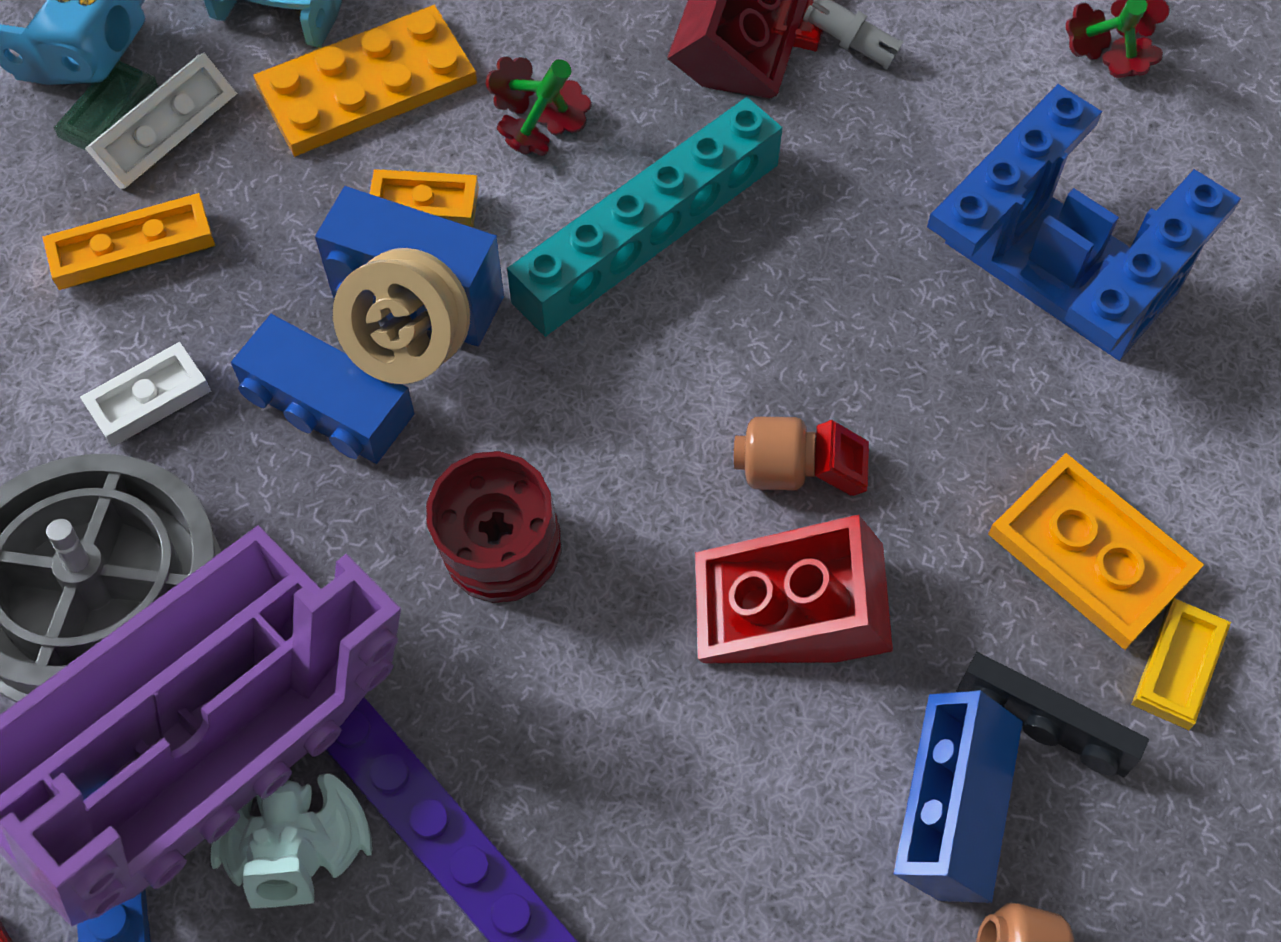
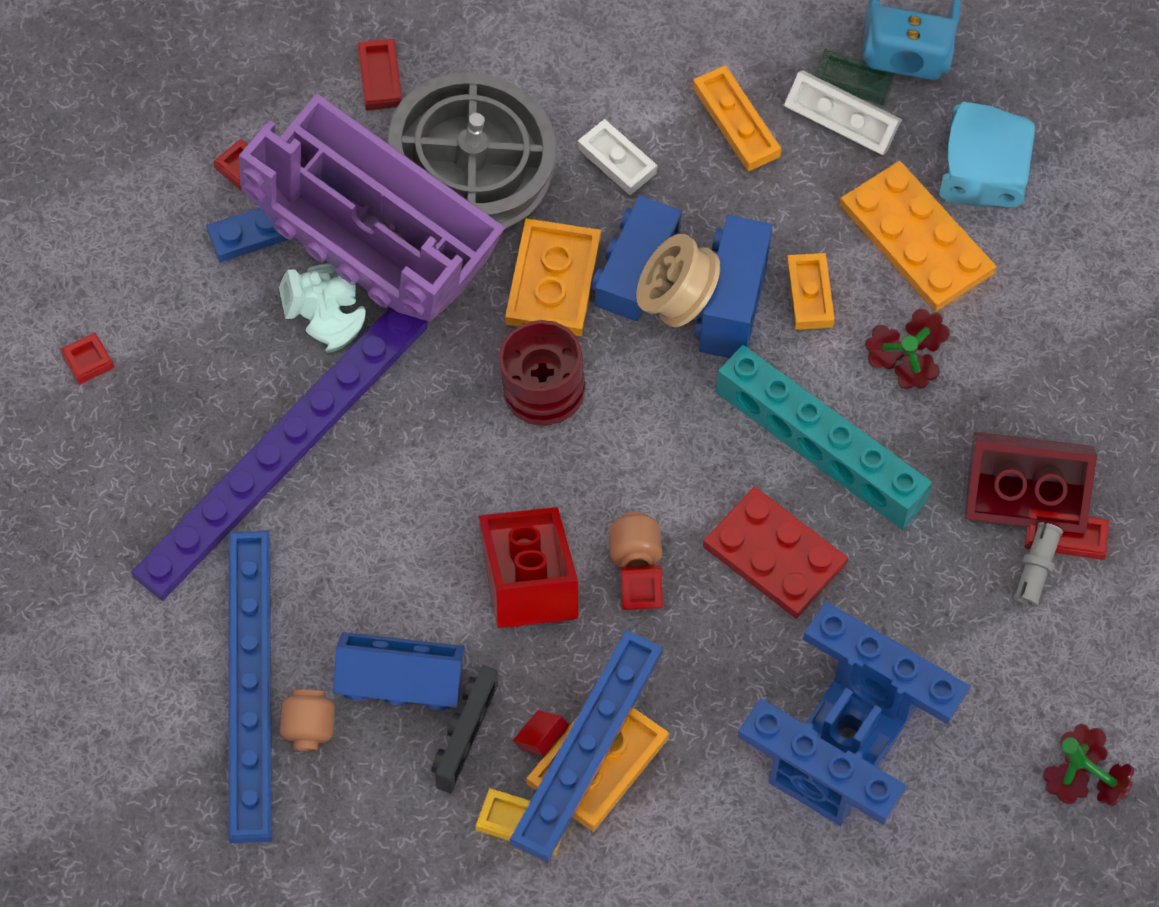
camera: 80 degrees right, 0 degrees up
(324, 502) = (553, 274): none -> light orange plate
(797, 301) = (775, 552): none -> red plate
(1057, 616) = (541, 733): none -> red tile
(1103, 551) = (586, 746): none -> blue plate

